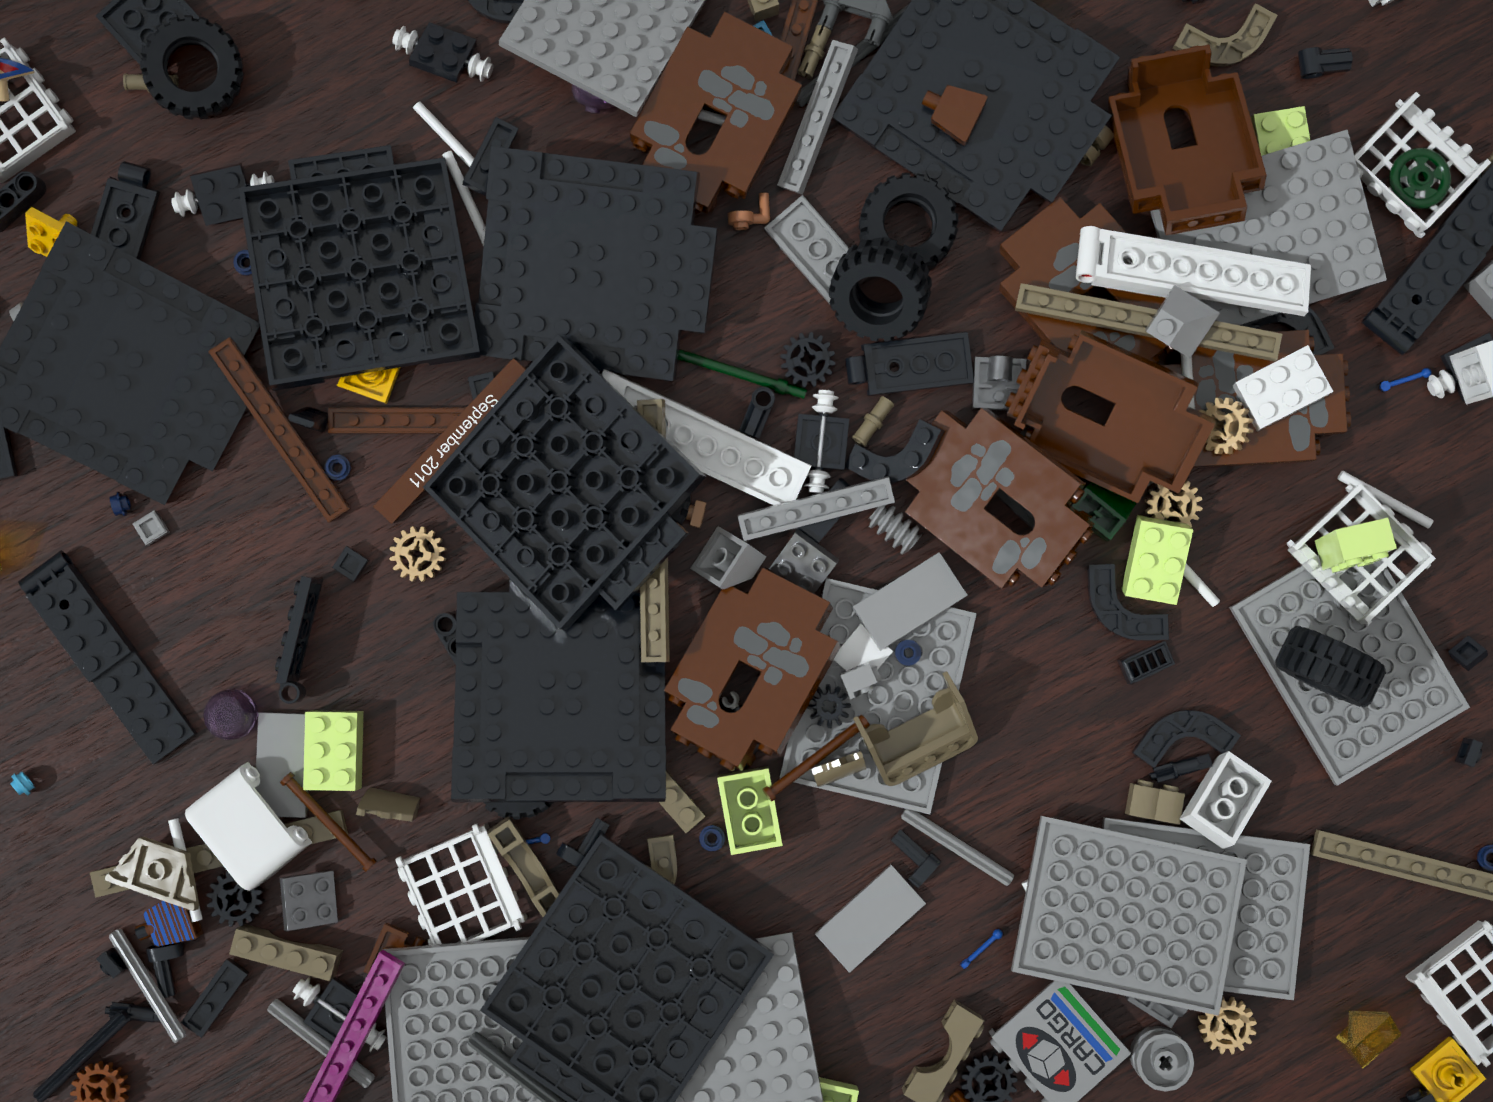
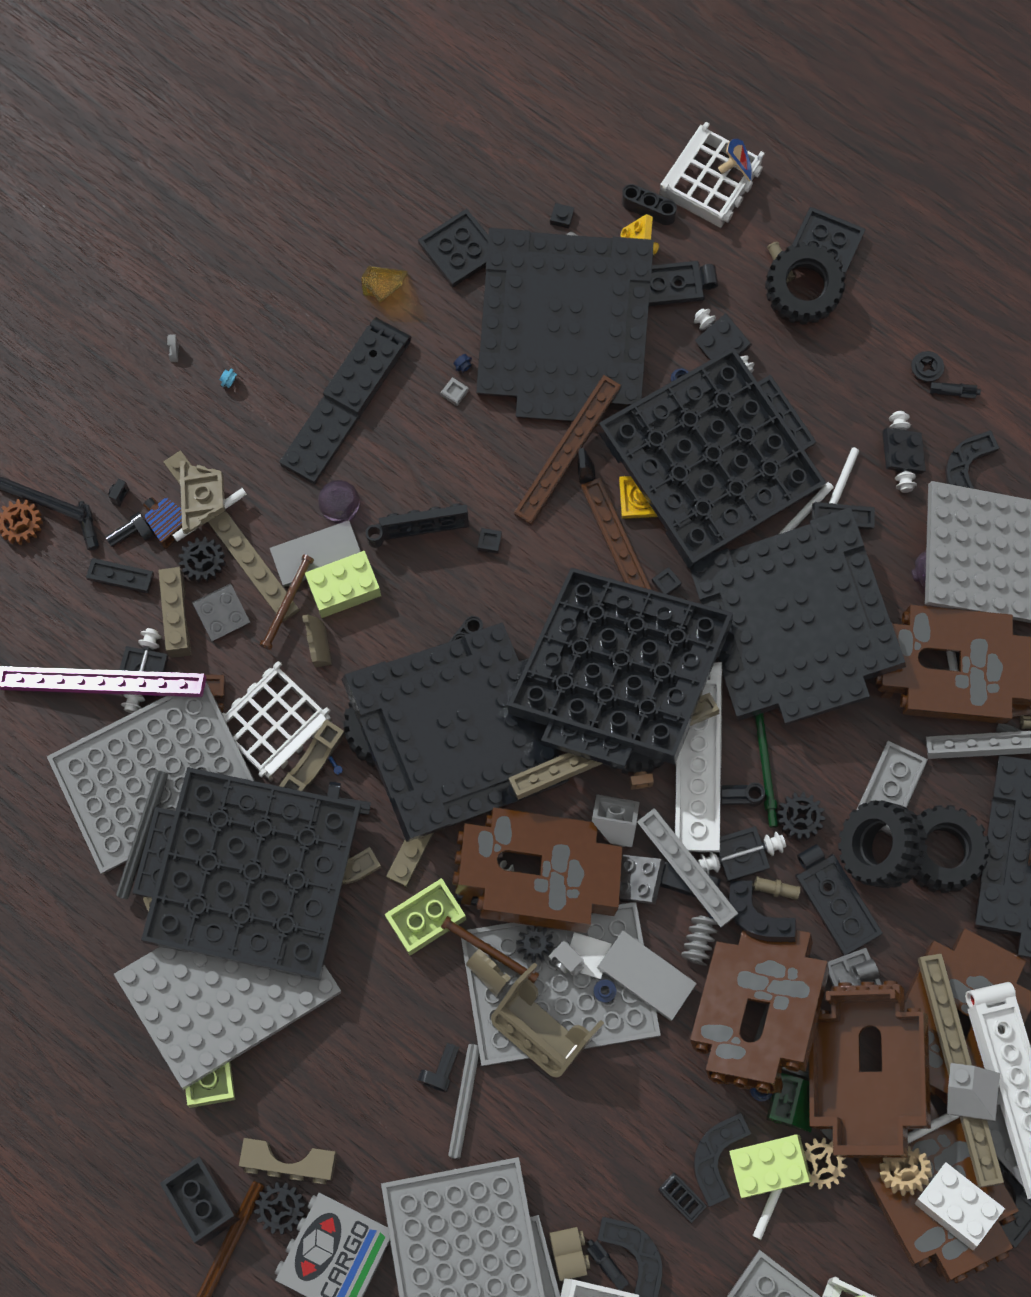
camera: 65 degrees right, 15 degrees down
(147, 985) = (111, 523): light grey axle -> none
(245, 829) = (257, 544): white windscreen -> none
(315, 1039) = (114, 662): light grey axle -> none
(330, 464) = (558, 497): dark blue plate -> none
(411, 483) = (566, 558): reddish brown tile -> none
(416, 566) = (511, 588): tan gear -> none
(712, 846) = (390, 892): dark blue plate -> none
(742, 219) = (886, 720): nougat plate -> none
(870, 918) = (376, 1053): light grey tile -> none
(997, 934) = (404, 1165): blue hinge -> none

